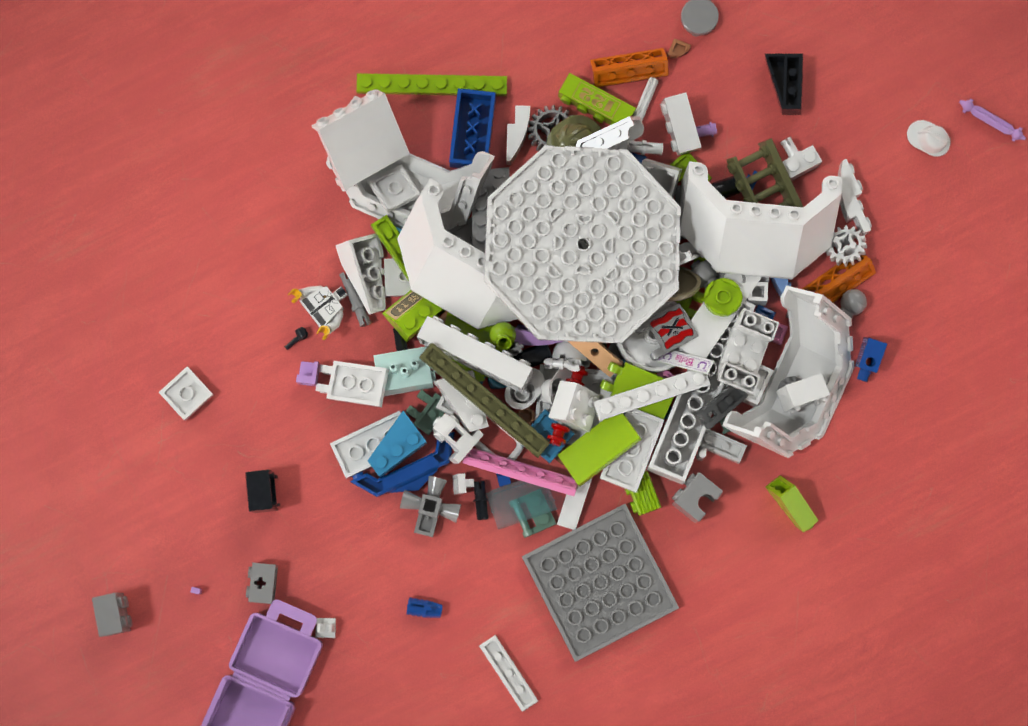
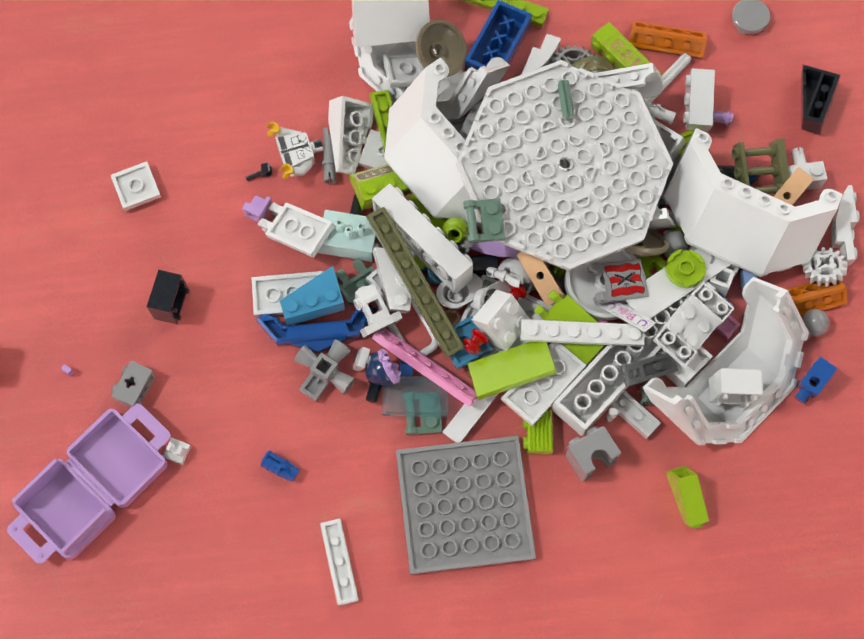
camera: 20 degrees right, 10 degrees down
(429, 153) = (447, 43): none -> dark tan dish
(484, 490) = (382, 370): none -> hair
(536, 325) = (490, 218): none -> sand green plate
(563, 183) = (566, 99): none -> sand green axle
(678, 49) = (720, 38): nougat tile -> none
(795, 181) = (794, 186): none -> light nougat tile

